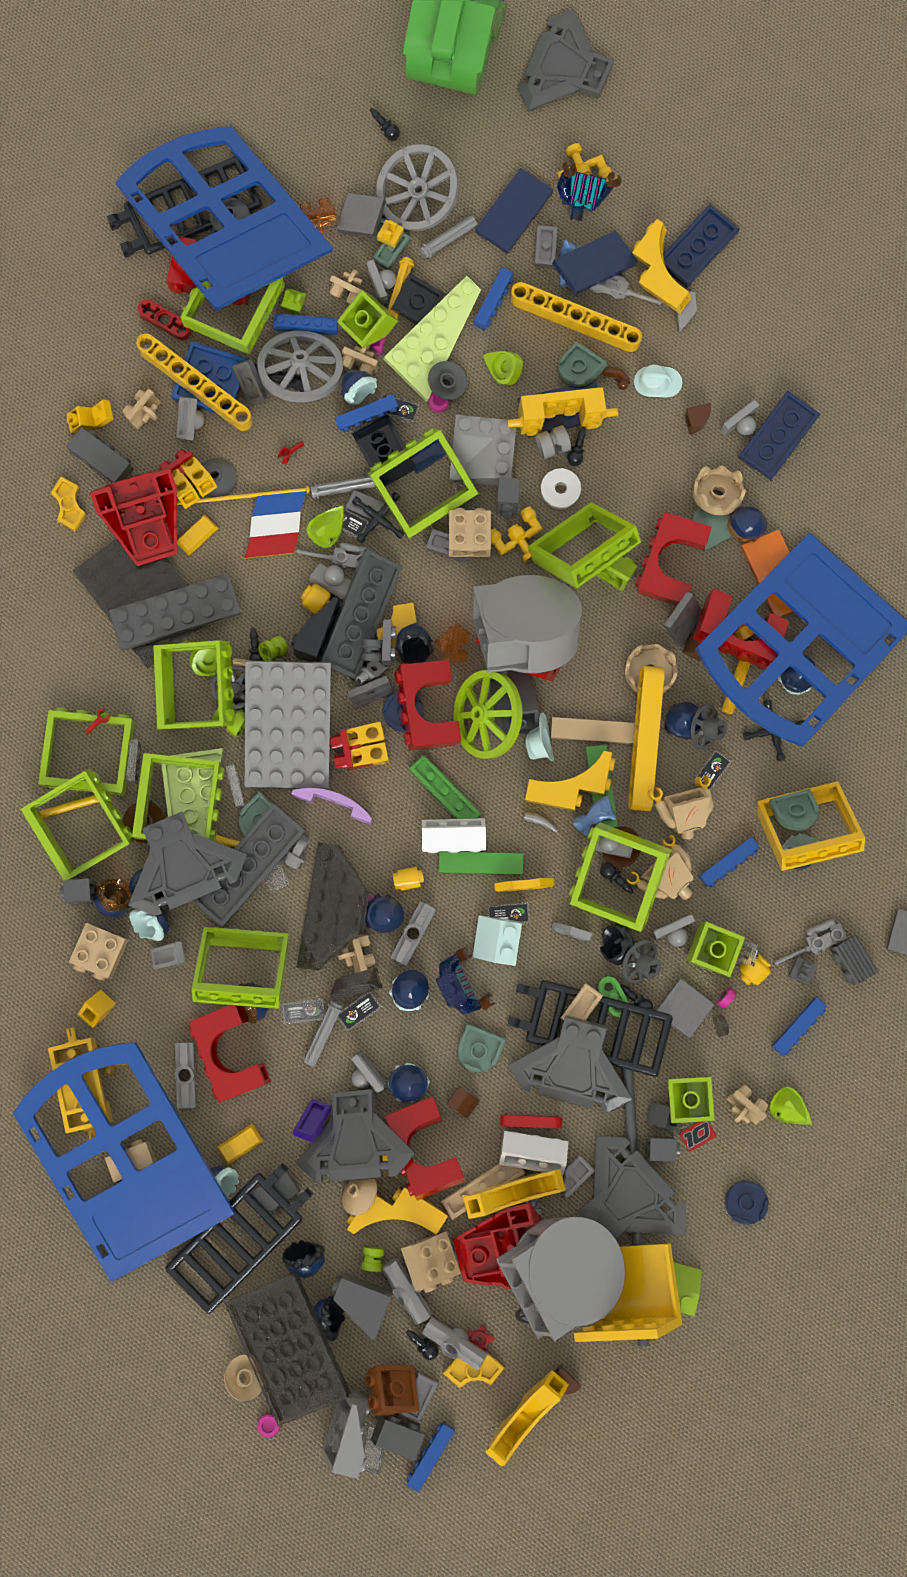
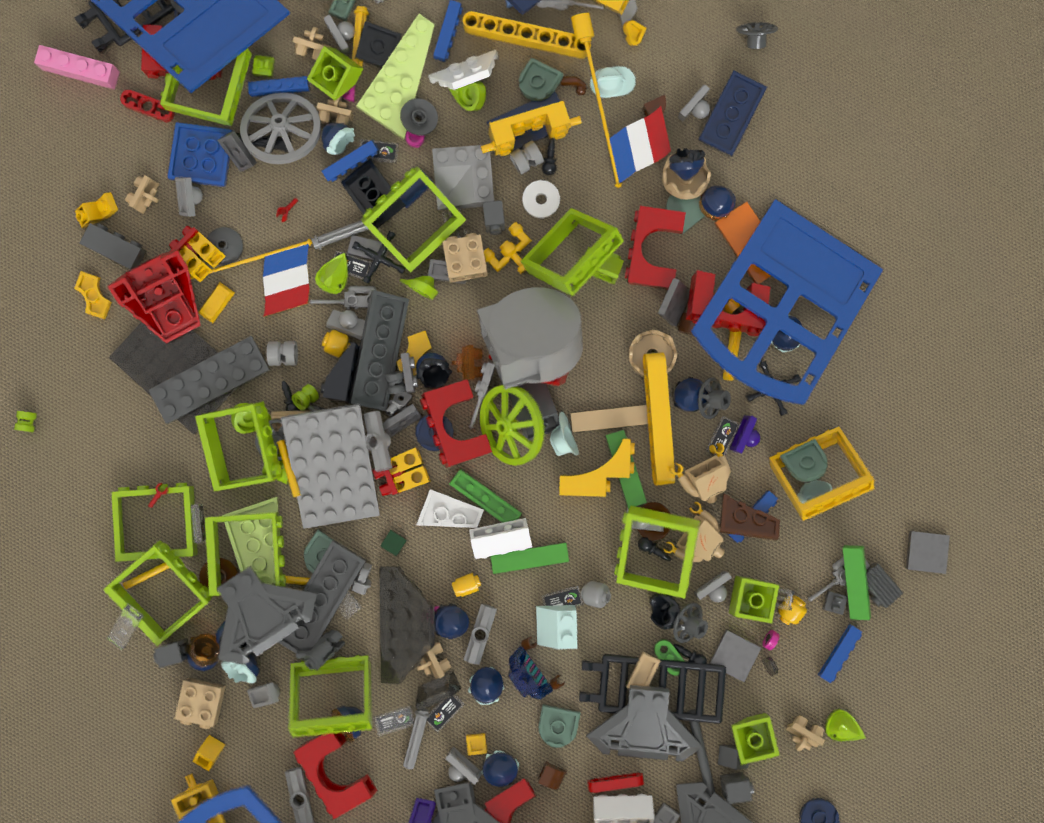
camera: 10 degrees left, 5 degrees up
(34, 855) = (125, 627): none -> clear tile
(99, 267) = (77, 67): none -> bright pink brick
(189, 374) = (179, 155): yellow beam -> none
(235, 786) = (295, 529): clear tile -> none
(240, 918) = (322, 650): none -> dark grey piece
(244, 737) = (290, 474): none -> yellow bar
(250, 598) = (282, 353): none -> light grey wheel
(309, 794) = (410, 533): lavender slope -> none
(337, 820) = (393, 543): none -> dark green tile
(342, 706) = (377, 441): none -> light grey piece
(387, 1052) = (476, 744): none -> yellow tile
(402, 797) = (448, 512): none -> white wing
(419, 555) = (423, 285): none -> lime piece
(464, 671) = (482, 387): none -> light grey piece
(506, 343) = (466, 72): none -> white wing
(538, 819) = (572, 508): light grey helmet -> none
(538, 883) = (571, 572): yellow tile -> none
(545, 913) = (595, 594): none -> light grey head
(571, 931) = (624, 606): light grey tile -> none
(598, 812) = (628, 493): medium blue animal -> none
(673, 448) = (637, 143): none -> flag
(689, 334) = (634, 32): none -> yellow tile
(697, 1135) = (765, 767): sticker -> none
(717, 862) = (745, 521): none -> reddish brown wing
(721, 476) = (687, 162): none -> hair
(736, 774) = (745, 435): none -> dark purple tile
(818, 360) = (756, 36): none -> dark grey wheel
(829, 951) = (856, 582): none -> bright green tile

